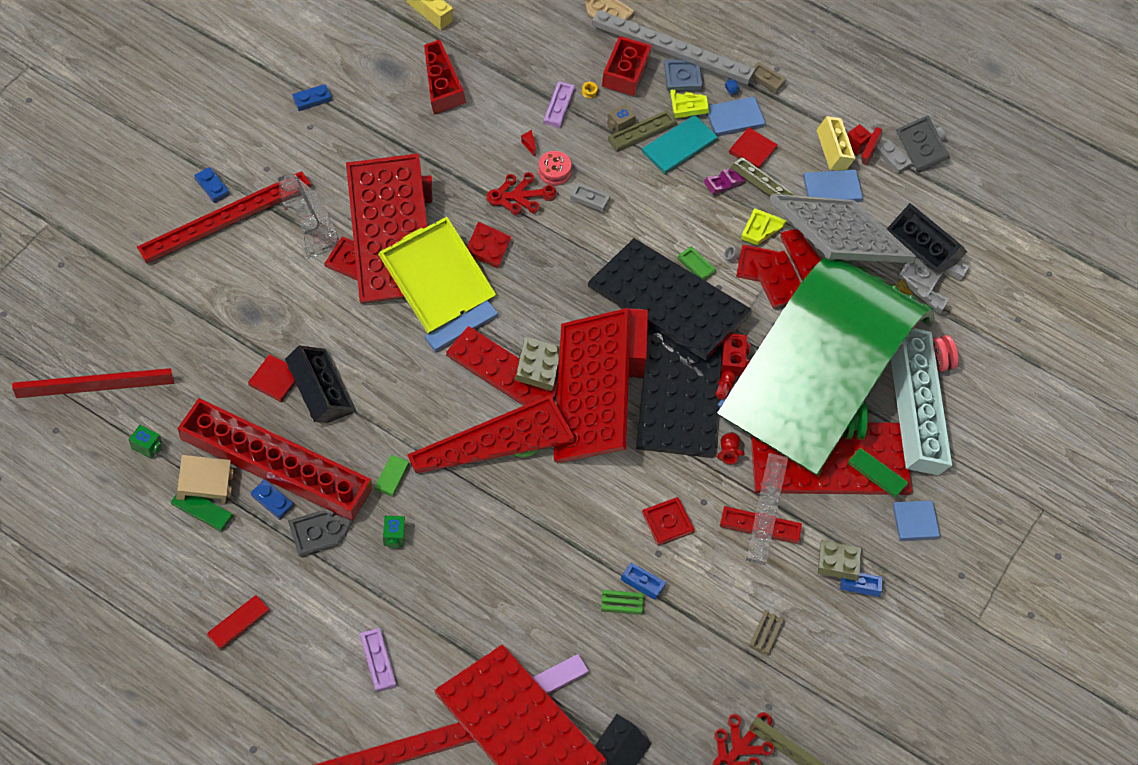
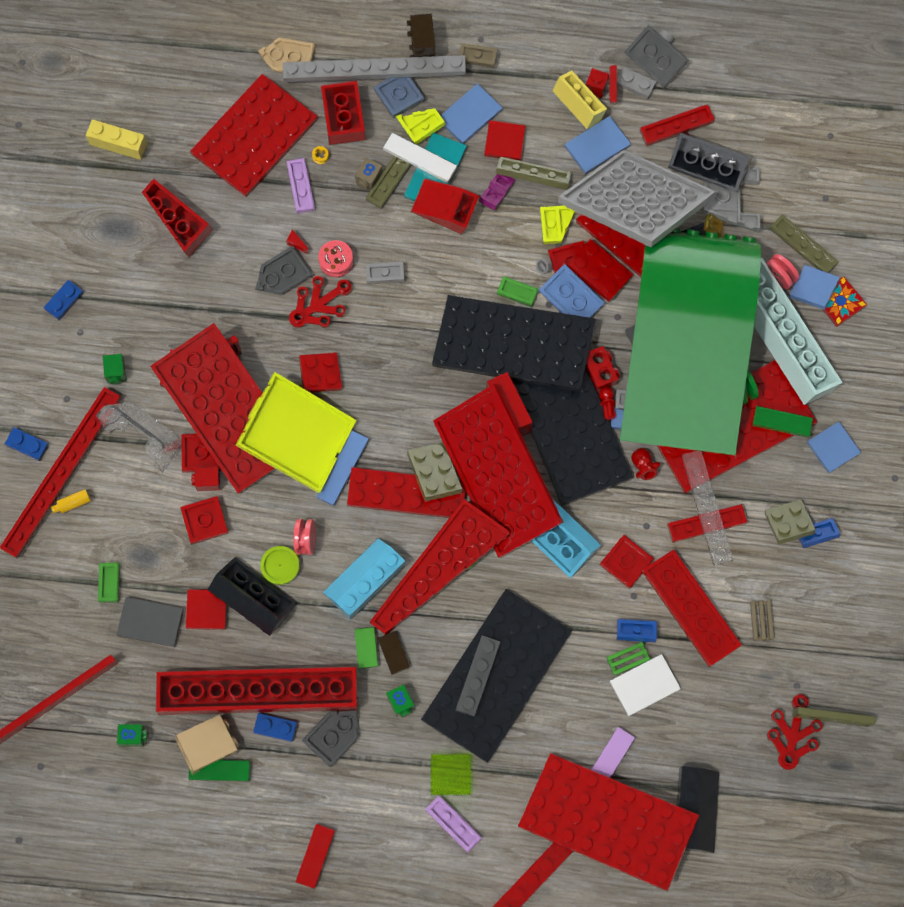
camera: 25 degrees left, 15 degrees up
(208, 318) = (108, 582): none -> bright green tile
(219, 242) = (71, 502): none -> yellow cylinder
(221, 364) = (150, 622): none -> dark grey tile
(318, 308) = (204, 520): none -> red plate
(319, 162) = (114, 368): none -> green brick
(340, 278) = (206, 479): none -> red brick
(359, 365) = (279, 574): none -> lime piece
(393, 359) = (304, 537): none -> coral head
(401, 617) = (450, 774): none -> clear neon green tile
(413, 491) = (393, 653): none -> dark brown tile
(426, 420) = (365, 578): none -> medium azure slope
(475, 544) = (478, 676): none -> dark grey plate
(493, 556) = (525, 652): none -> black plate
(503, 159) = (282, 272): none -> dark grey tile
(543, 52) = (253, 135): none -> red plate
(621, 477) = (567, 544): none -> medium azure slope
(624, 632) = (644, 685): none -> white tile
(672, 126) = (420, 157): none -> white tile
(672, 169) = (445, 205): none -> red slope
(705, 588) = (691, 608): none -> red plate
(727, 37) = (422, 35): none -> dark brown container
(731, 87) = (451, 83): blue plate -> none
(742, 284) = (571, 294): none -> medium blue tile
(925, 203) = (676, 124): none -> red plate
(968, 381) = (814, 287): none -> medium blue tile
(977, 346) = (803, 244): none -> olive tile
(987, 405) = (844, 303): none -> tile

